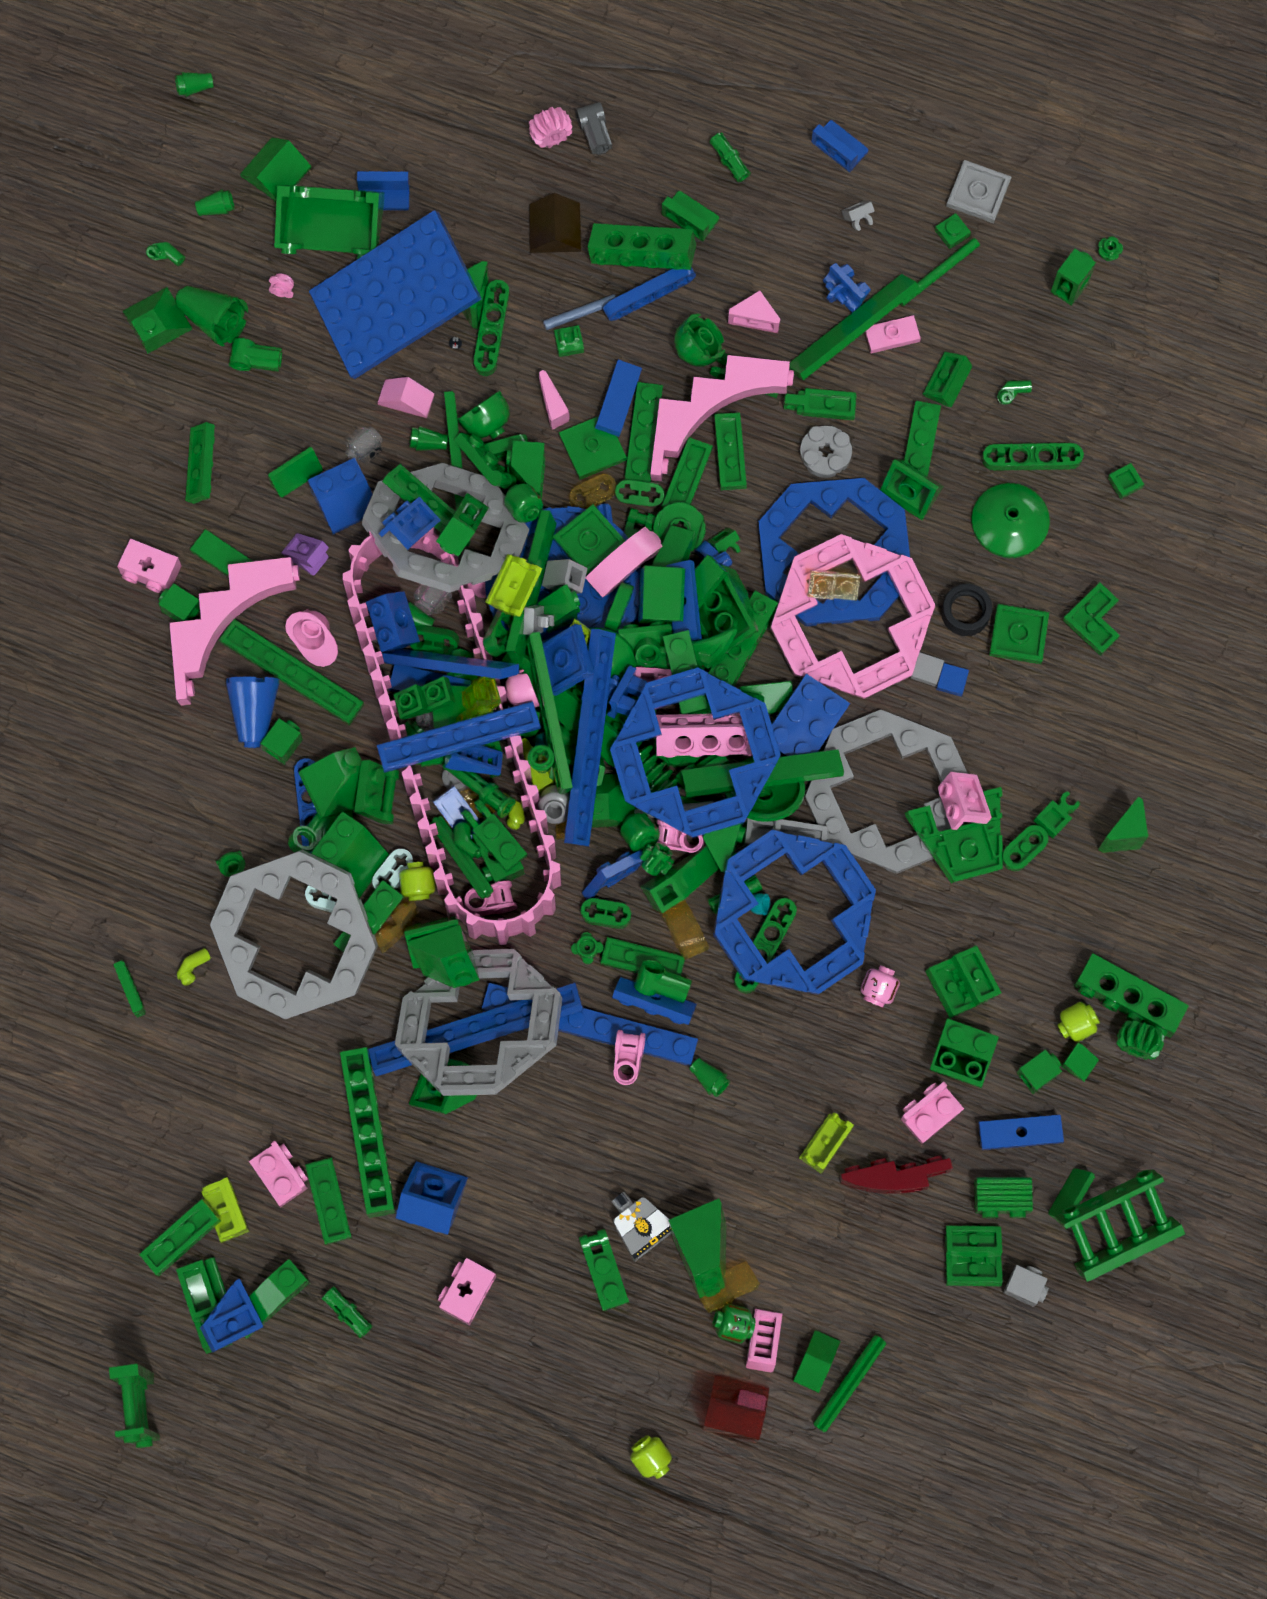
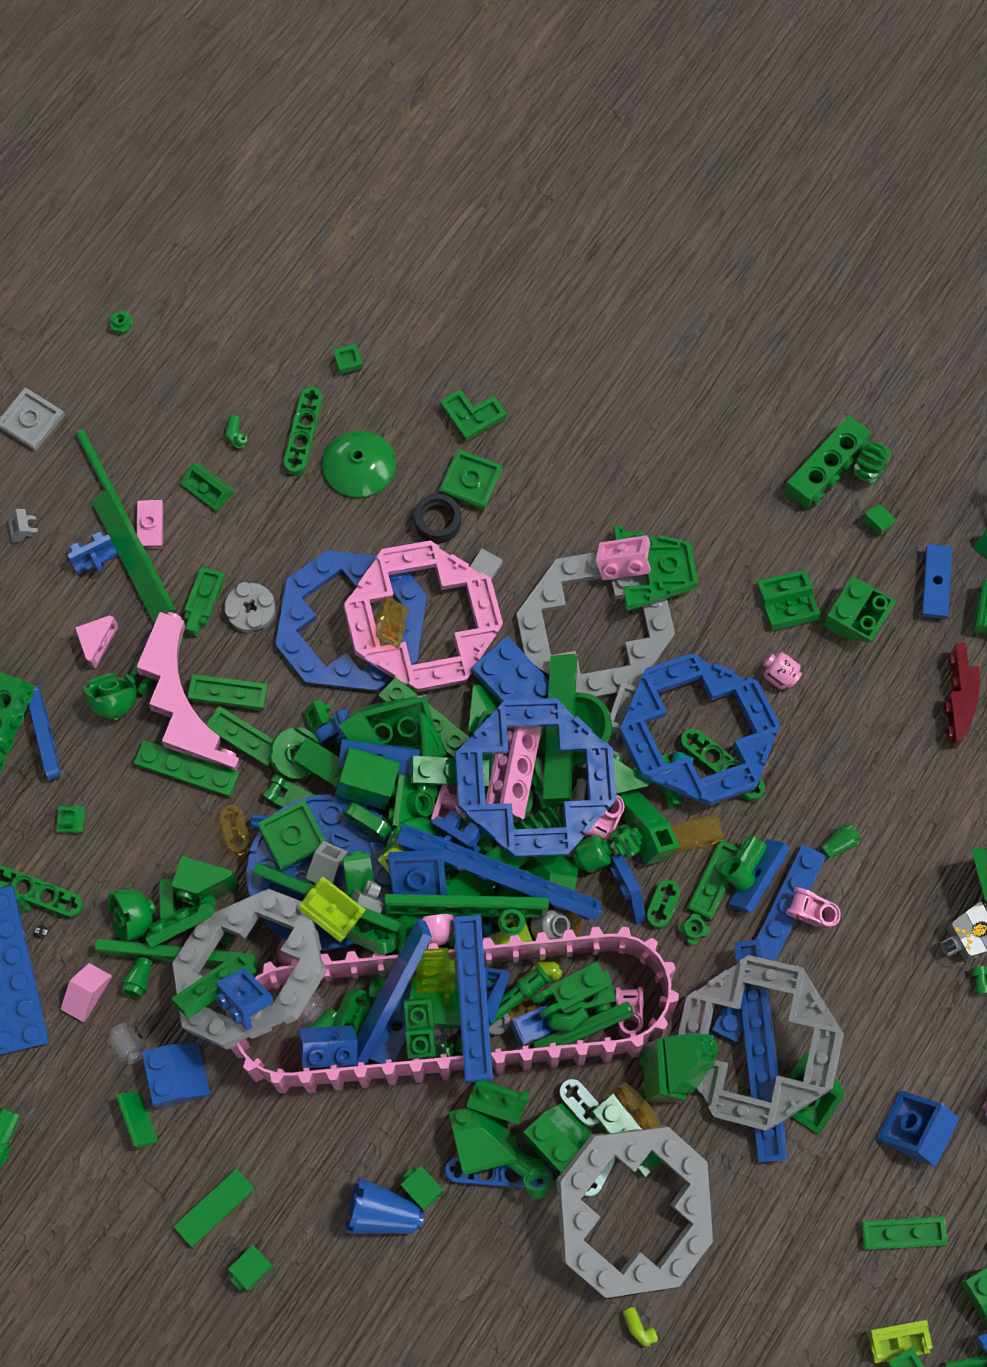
camera: 75 degrees left, 5 degrees down
(141, 556) = (185, 1300): bright pink brick -> none
(195, 639) = (293, 1259): bright pink arch -> none
(200, 463) = (99, 1218): green plate -> none
(231, 863) = (539, 1266): green plate -> none
(278, 1173) = (870, 1278): bright pink bracket -> none
(291, 672) = (348, 1166): green tile -> none
(306, 553) = (226, 1124): medium lavender slope -> none
(312, 637) = (320, 1134): bright pink piece -> none
(367, 1132) = (846, 1177): green brick -> none
(417, 881) = (599, 1078): lime head -> none
(462, 525) = (257, 946): green slope -> none
(523, 503) = (240, 888): green head -> none
(555, 407) = (130, 847): bright pink slope -> none
(577, 313) = (44, 806): sand blue bar -> none
(591, 448) = (187, 820): green plate -> none
(618, 398) = (145, 784): blue tile -> none
(624, 561) = (325, 804): bright pink arch -> none
(639, 499) = (242, 782): green beam -> none
(826, 1142) = (920, 749): lime hinge -> none
(910, 488) = (309, 538): green slope -> none
(922, 435) = (261, 522): green plate -> none
(931, 1112) = (905, 653): bright pink bracket -> none
(952, 231) = (62, 450): green plate -> none
(952, 680) = (501, 545): blue tile -> none
(1024, 849) = (676, 520): green plate -> none
(1040, 1071) = (884, 553): green brick -> none
(1056, 815) = (651, 488): green plate -> none
(1073, 276) = (143, 353): green brick -> none
(1078, 1022) = (844, 510): lime head -> none
(1129, 831) = (676, 426): green slope -> none

